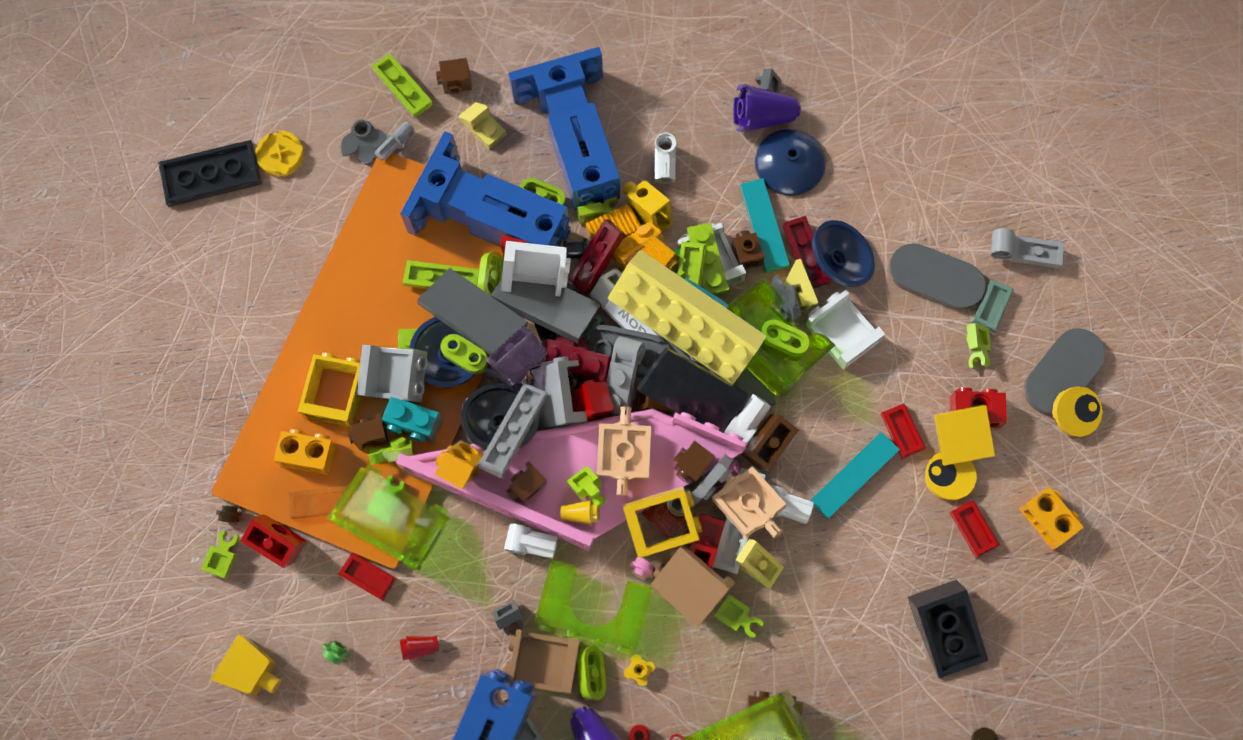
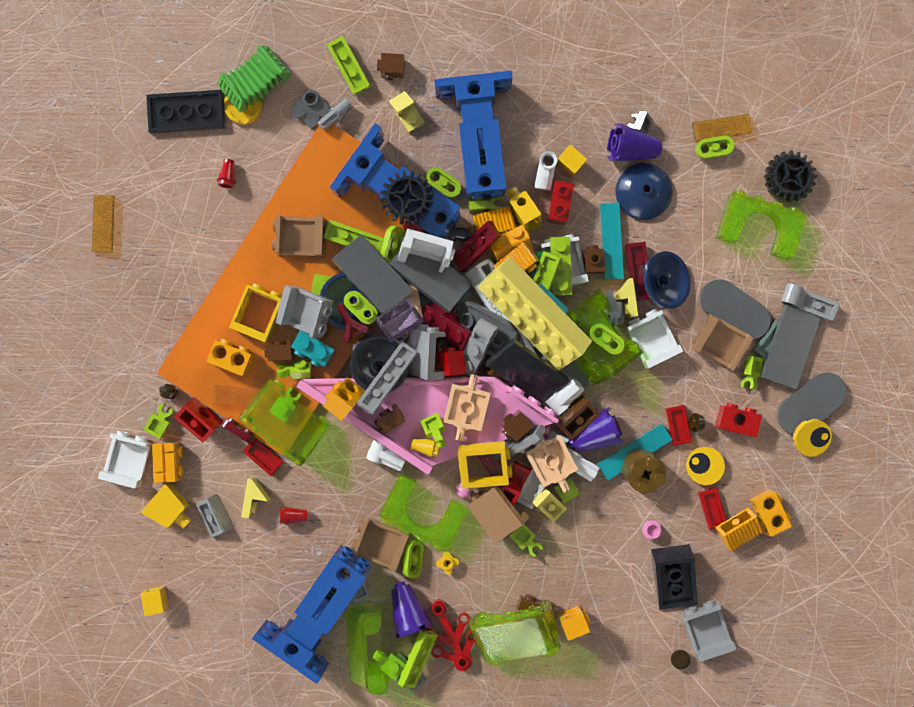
camera: 10 degrees right, 15 degrees up
(120, 323) = (103, 223): none -> clear yellow tile
(183, 614) = (126, 459): none -> white panel
(238, 606) = (167, 462): none -> light orange brick
(270, 236) = (226, 176): none -> red cone
(288, 119) = (254, 79): none -> bright green piece
(312, 669) = (214, 516): none -> light grey slope
(320, 542) = (231, 425): none -> dark red plate
(335, 652) = (232, 508): bright green plate -> none
(360, 625) = (253, 492): none -> light yellow slope
(372, 288) = (299, 236): none -> medium nougat panel
(454, 376) = (350, 324): none -> dark red piece
(478, 202) = (410, 180): none -> black gear
(507, 615) = (360, 506): dark grey tile -> none
(690, 190) = (560, 202): none -> red brick
(693, 141) = (571, 160): none -> yellow panel
(779, 545) = (569, 494): none -> lime plate
(802, 457) = (600, 433): none -> dark purple cone
(828, 714) = (574, 622): none -> light orange brick
(861, 96) = (713, 147): none -> lime plate
(866, 74) = (724, 126): none -> clear yellow tile
(885, 495) = (643, 471): none -> pearl gold brick
(902, 572) = (652, 530): none -> bright pink plate
(924, 421) = (696, 422): none -> dark brown plate
(932, 316) = (722, 342): none -> medium nougat panel
(964, 435) = (722, 441): yellow tile -> none
(966, 123) = (795, 182): none -> black gear
(972, 161) = (787, 221): none -> clear neon green arch
(1010, 693) = (707, 631): none -> light grey panel
(1016, 546) = (739, 529): none -> light orange brick
(1018, 307) = (790, 347): none -> dark grey tile

